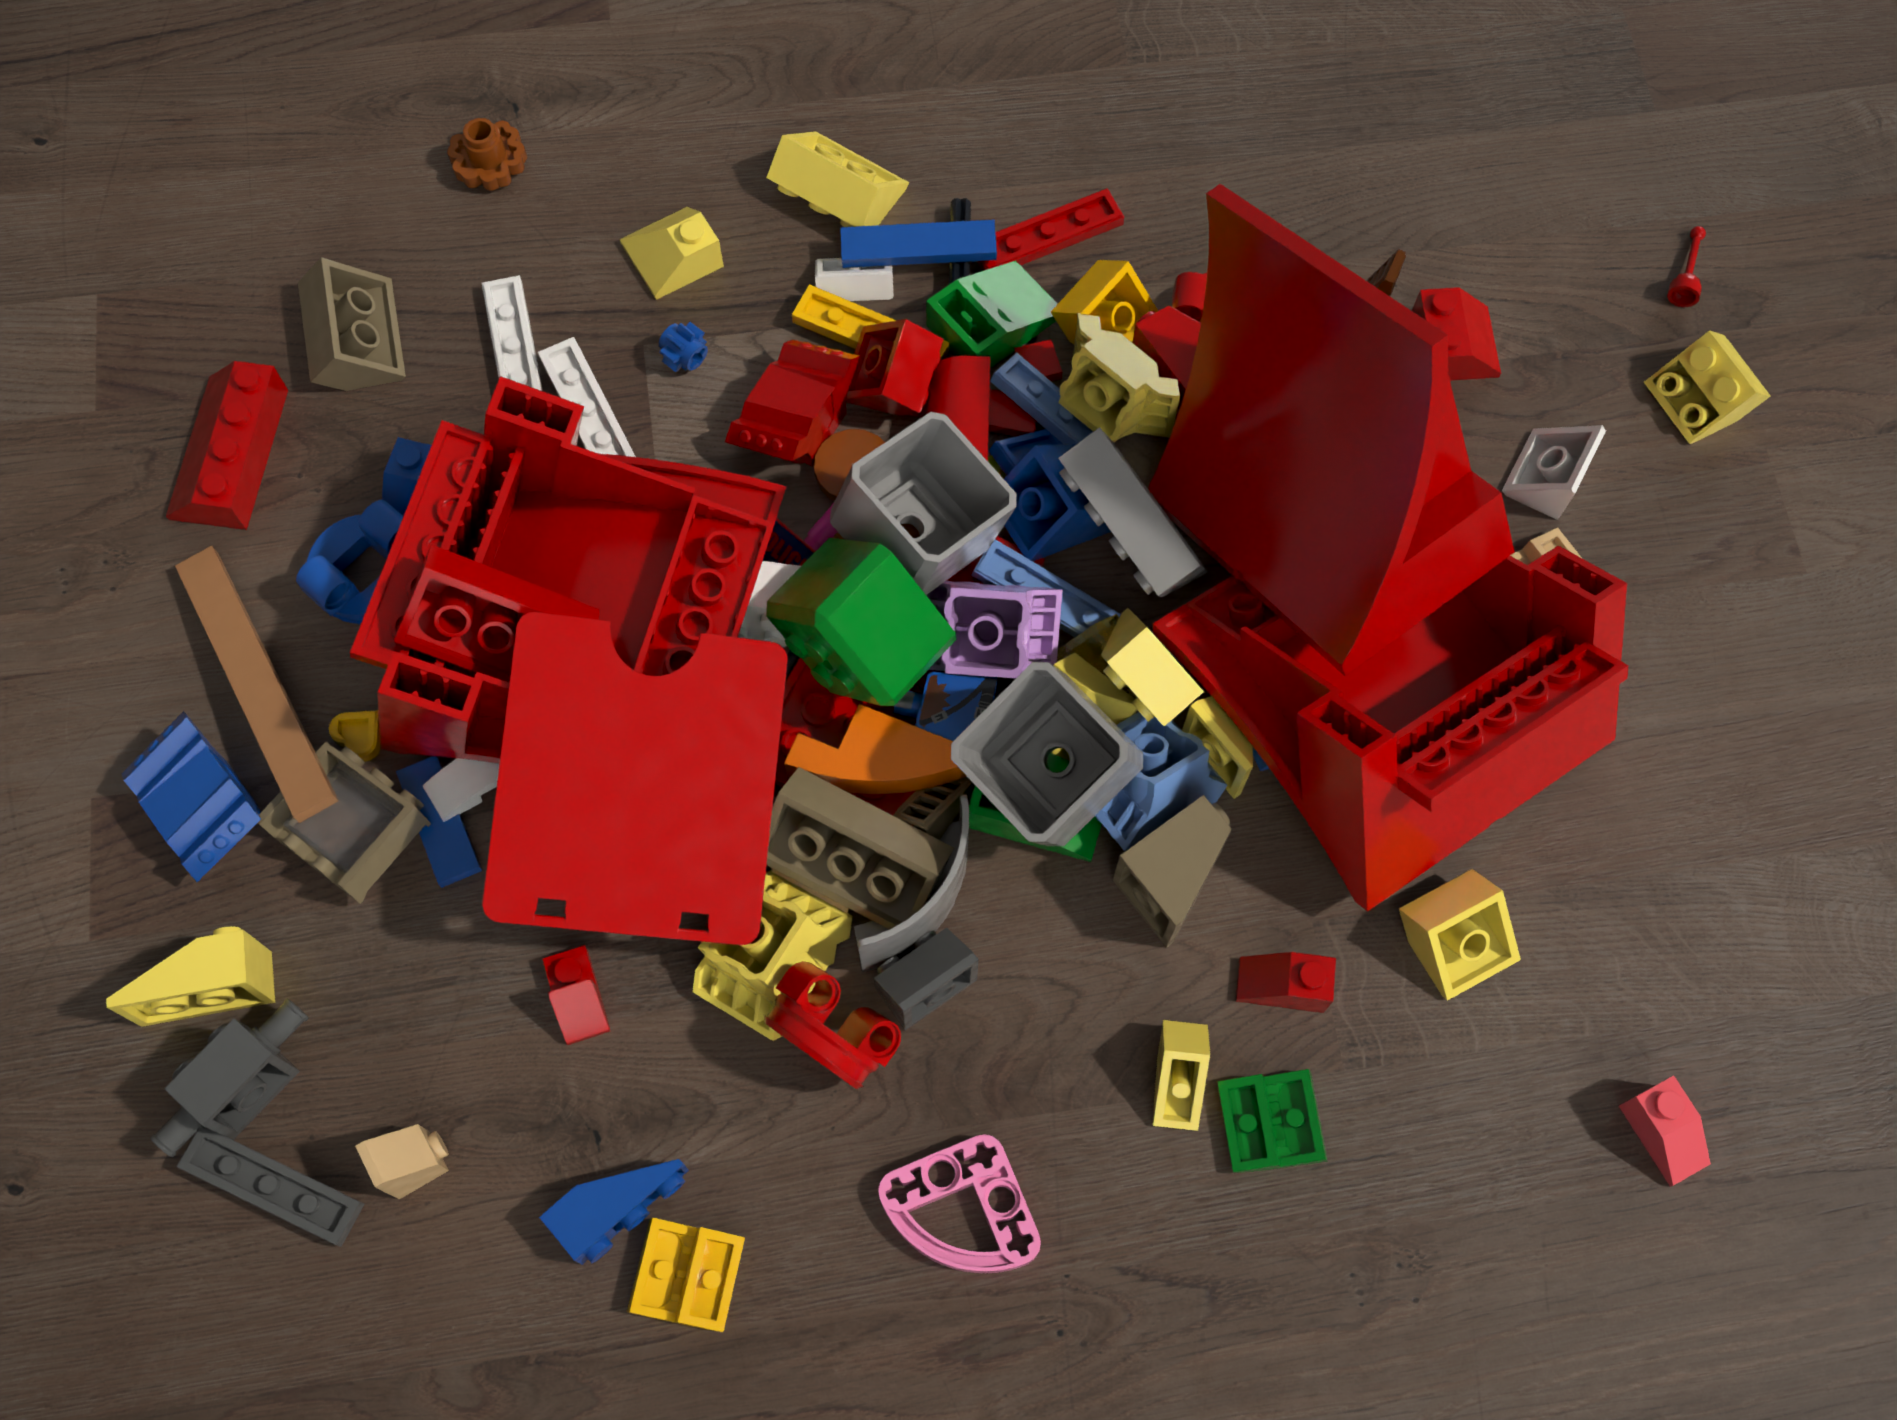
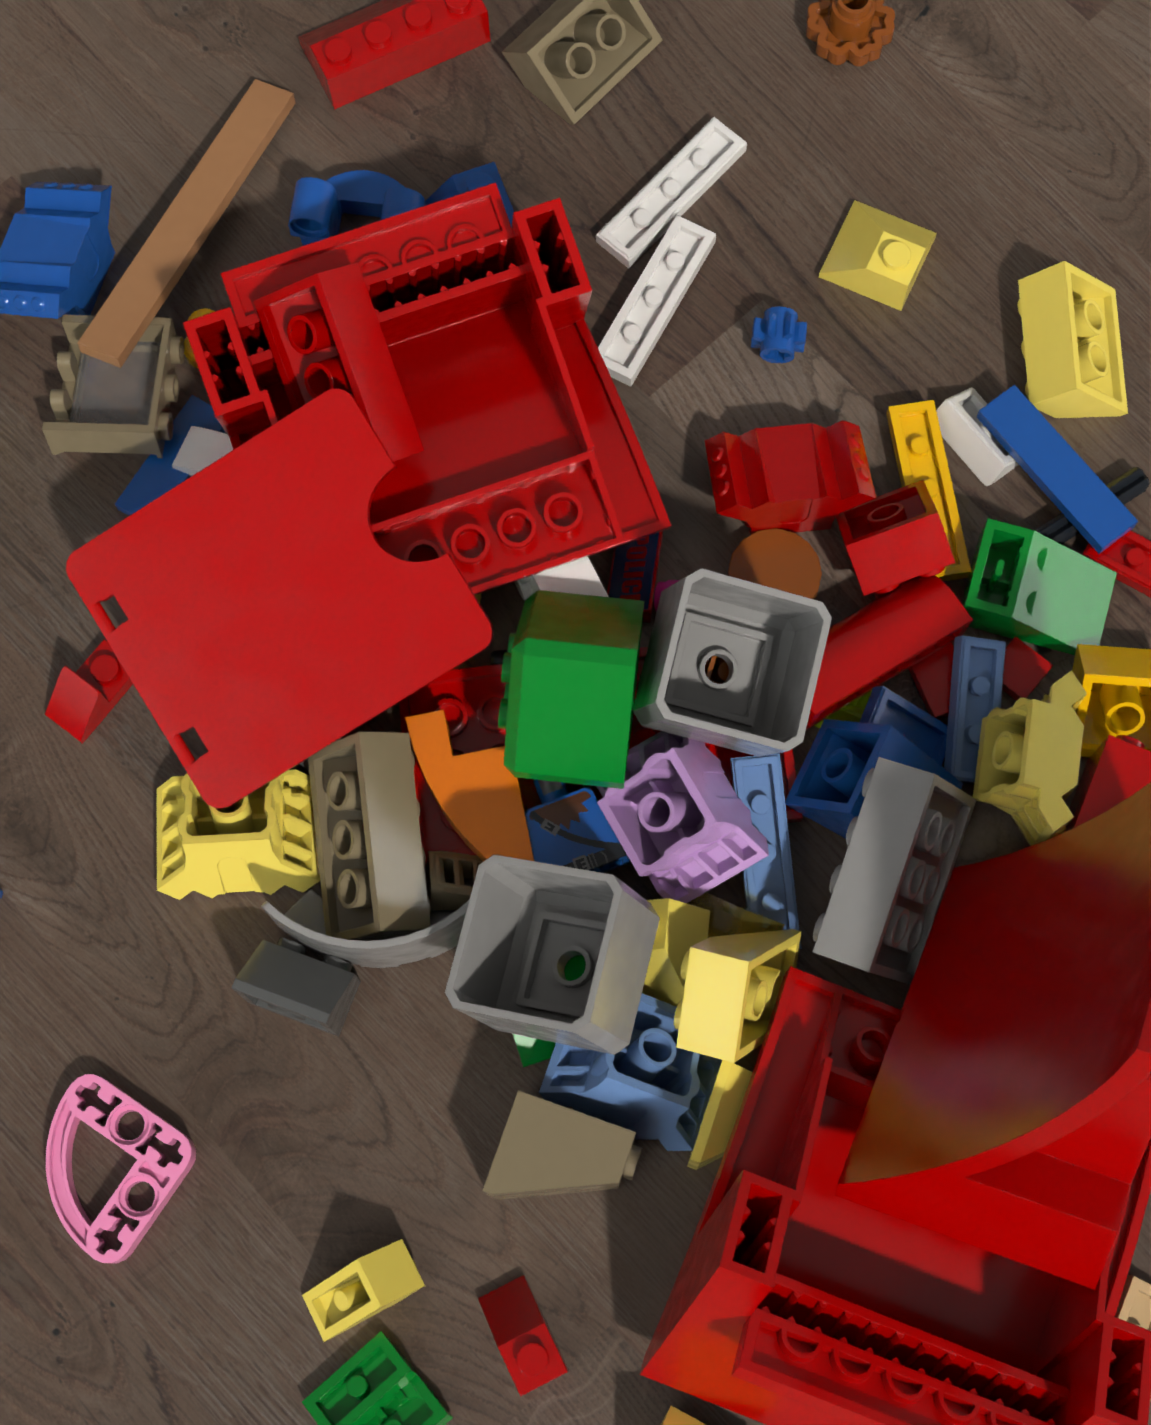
camera: 60 degrees right, 5 degrees up
(801, 1017) = (168, 934): red piece -> none

